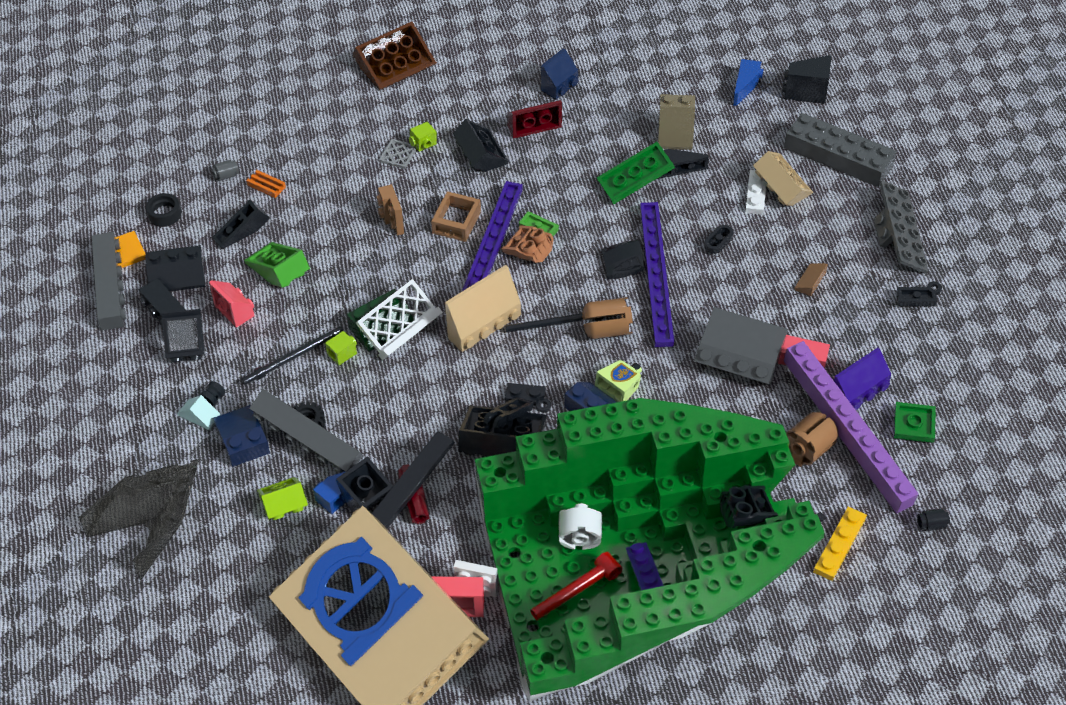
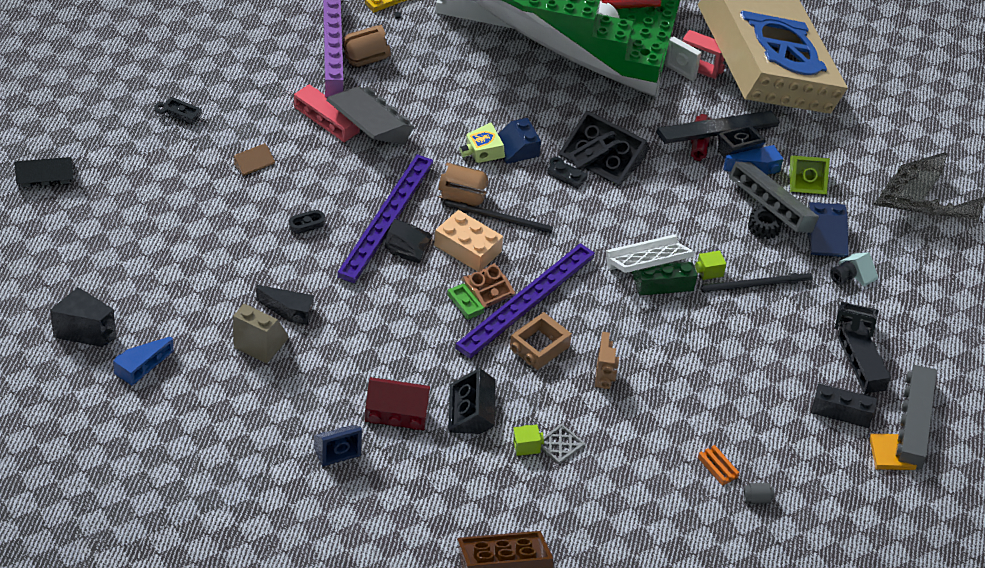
camera: 160 degrees left, 5 degrees down
(166, 219) = (836, 485): black tyre -> none
(231, 302) = (800, 338): coral slope -> none
(241, 224) = (759, 419): black slope -> none
(278, 263) = (741, 366): bright green slope -> none
(482, 309) = (566, 229): tan slope -> none
(569, 275) = (468, 240): none -> light nougat brick
(635, 172) = (340, 299): green plate -> none
(755, 194) = (232, 252): white plate -> none
(782, 178) = (204, 238): tan slope -> none
(840, 149) = (121, 249): dark grey brick -> none
(864, 378) = (293, 67): dark purple slope -> none
(899, 226) = (142, 161): dark grey bracket -> none
(914, 422) = (273, 33): green plate -> none
(967, 188) = (44, 171): none -> black slope

